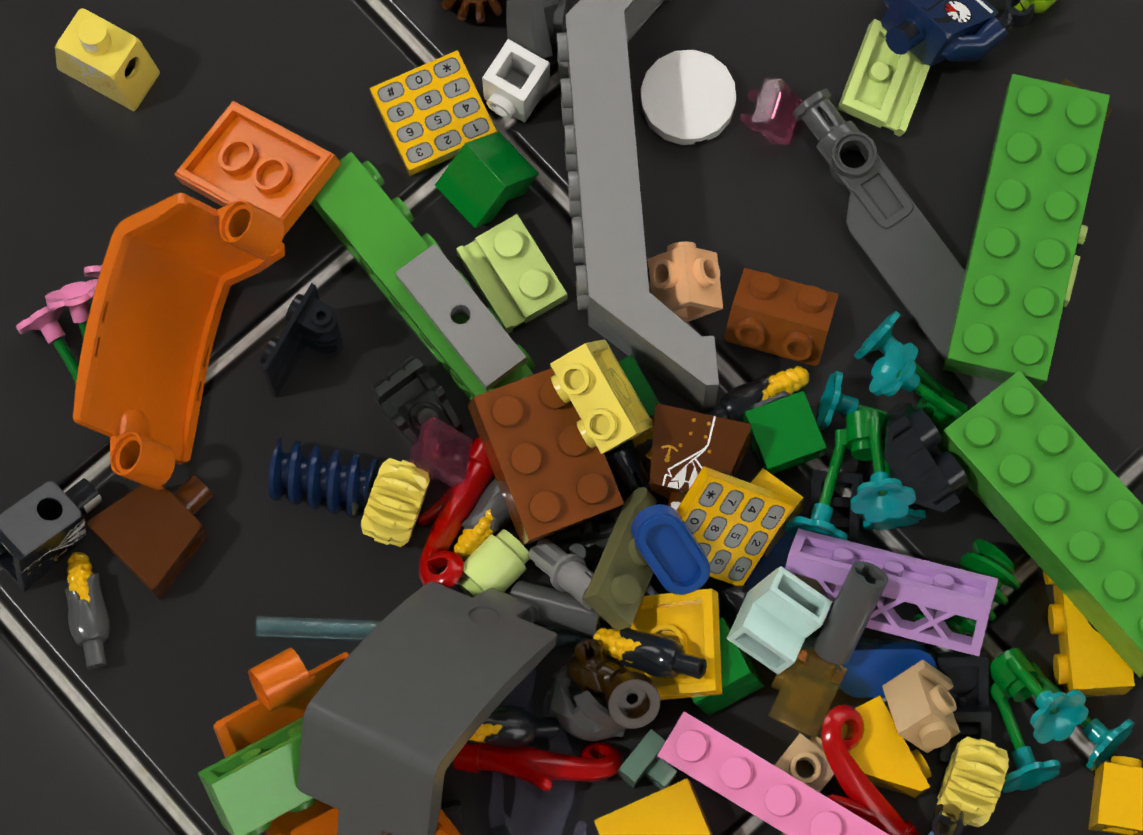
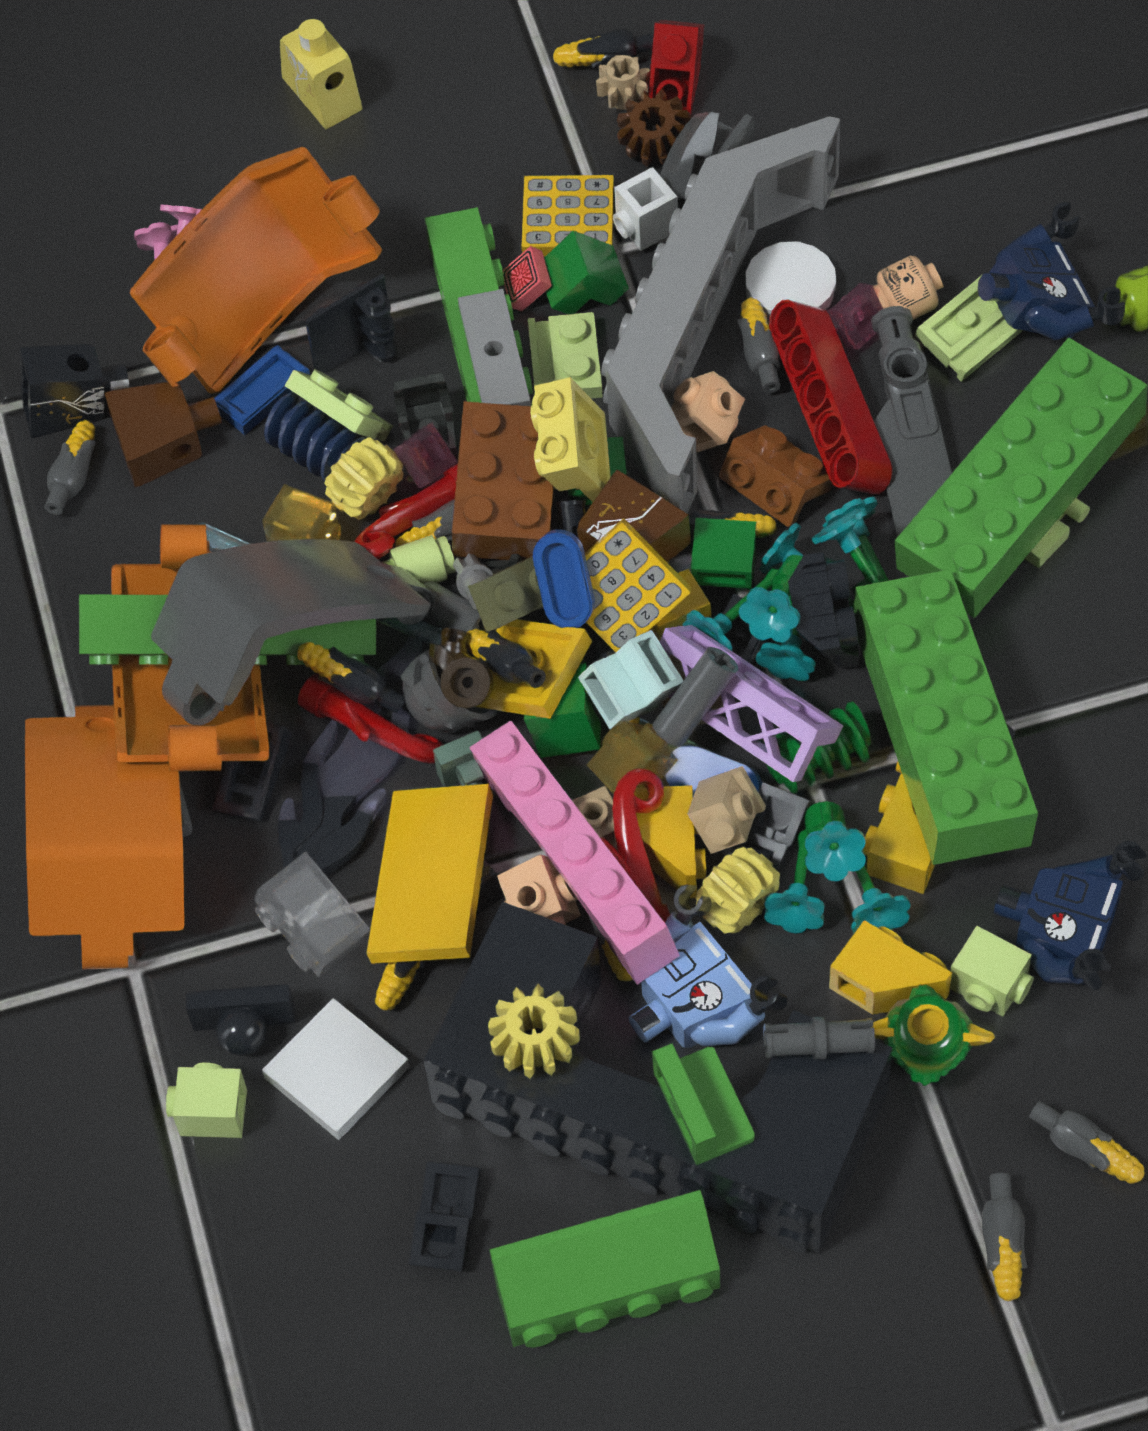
camera: 30 degrees right, 15 degrees down
(230, 438) = (257, 389): none -> blue tile
(257, 163) = (406, 193): orange tile -> none
(325, 431) = (346, 409): none -> yellowish green plate
(357, 577) = (300, 516): none -> clear yellow brick
(433, 205) = (526, 278): none -> coral tile
(695, 180) = (759, 345): none -> dark grey piece
(809, 61) = (909, 285): none -> light nougat head
(816, 221) = (830, 398): none -> red beam

